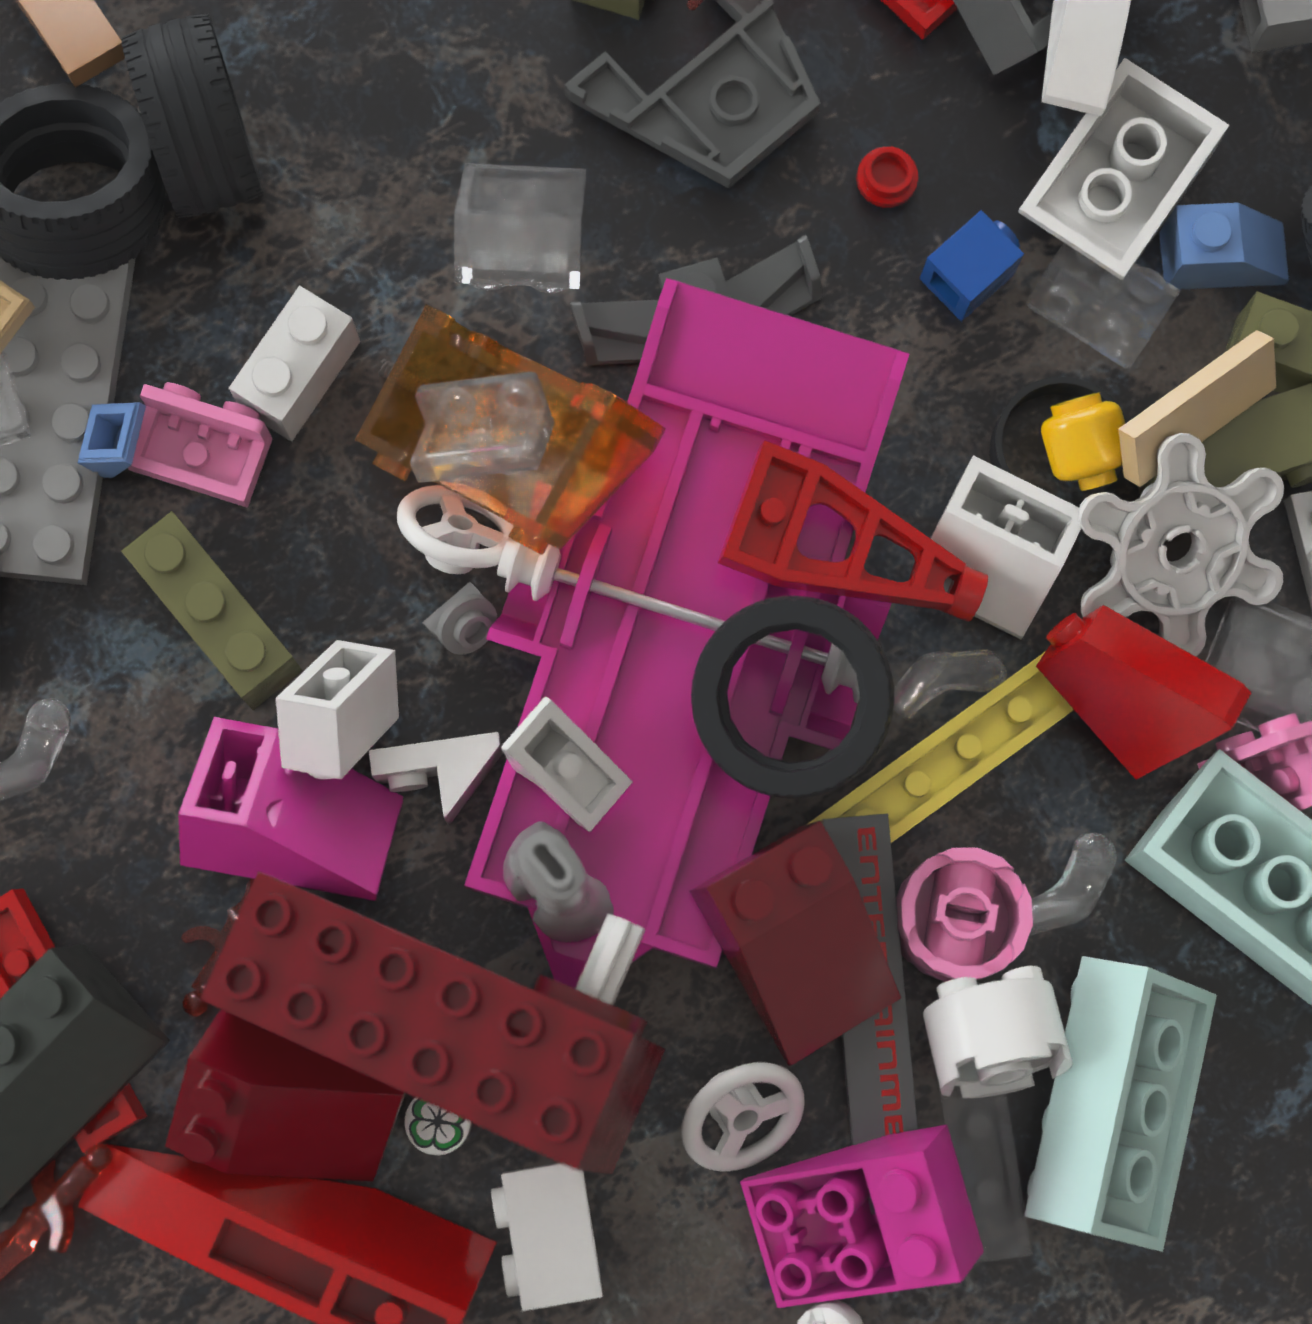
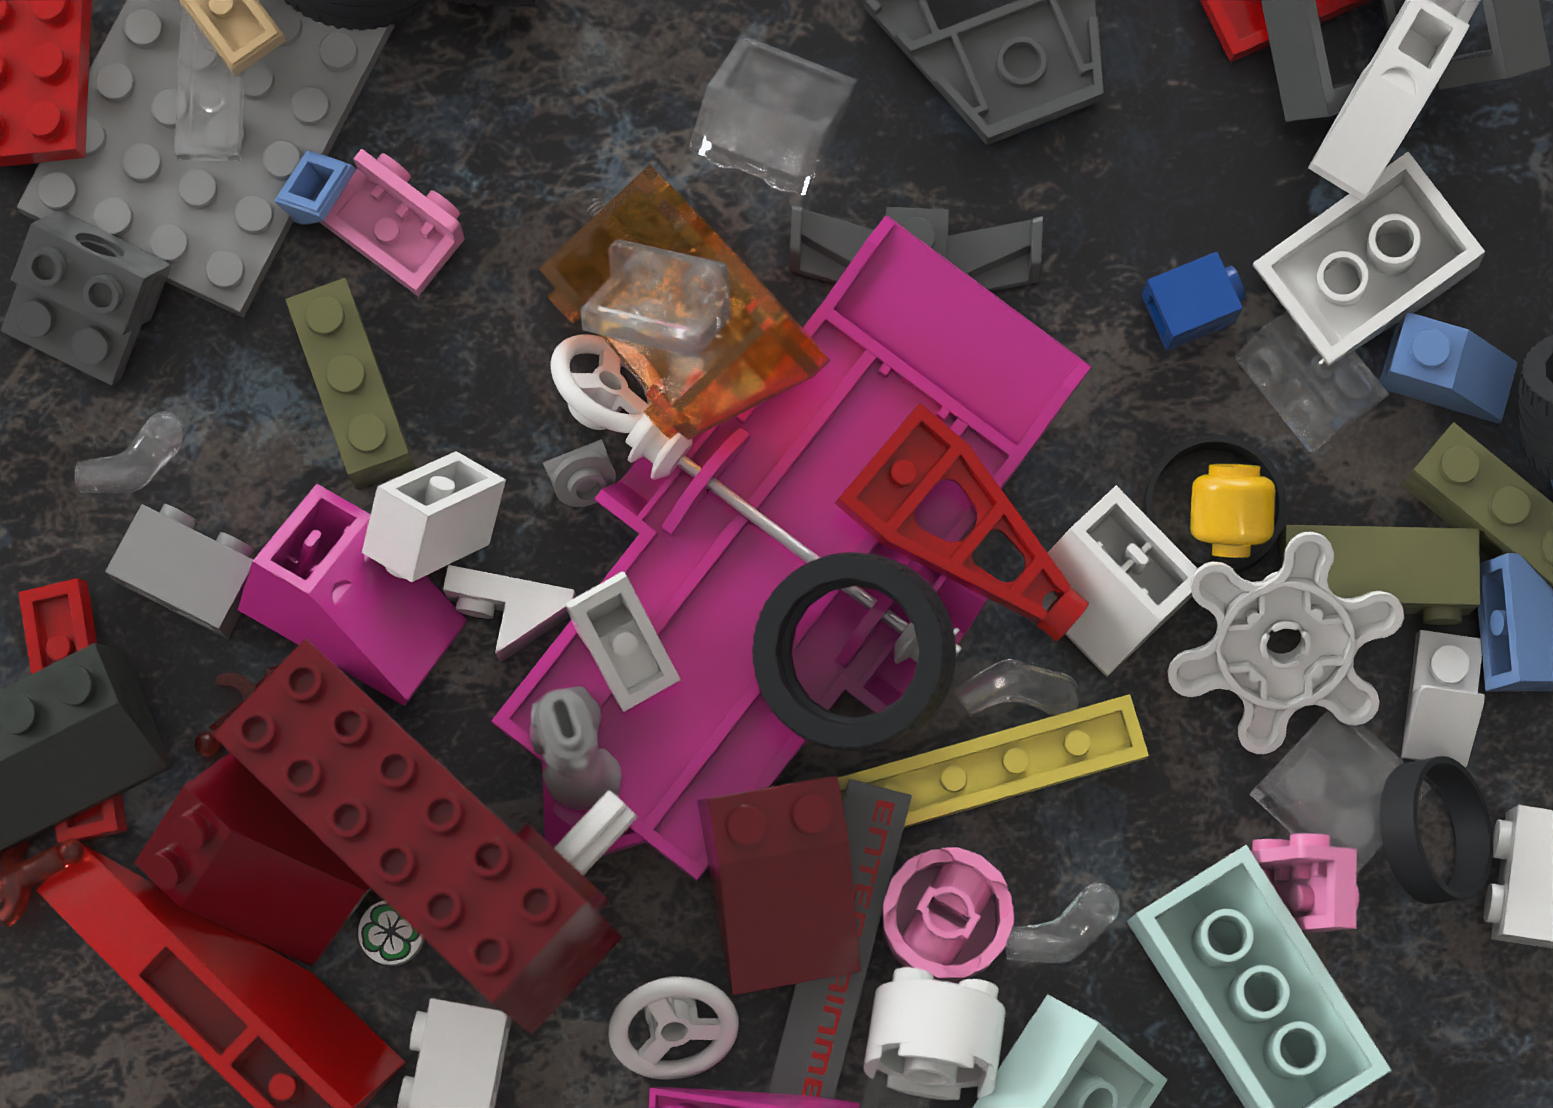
camera: 25 degrees right, 0 degrees up
(112, 842) = (183, 568): none -> light grey brick
(296, 362) = (511, 175): white brick -> none
(887, 177) = (1144, 186): red plate -> none
(1139, 689) = (1191, 760): red slope -> none
(1200, 404) = (1352, 511): tan tile -> none

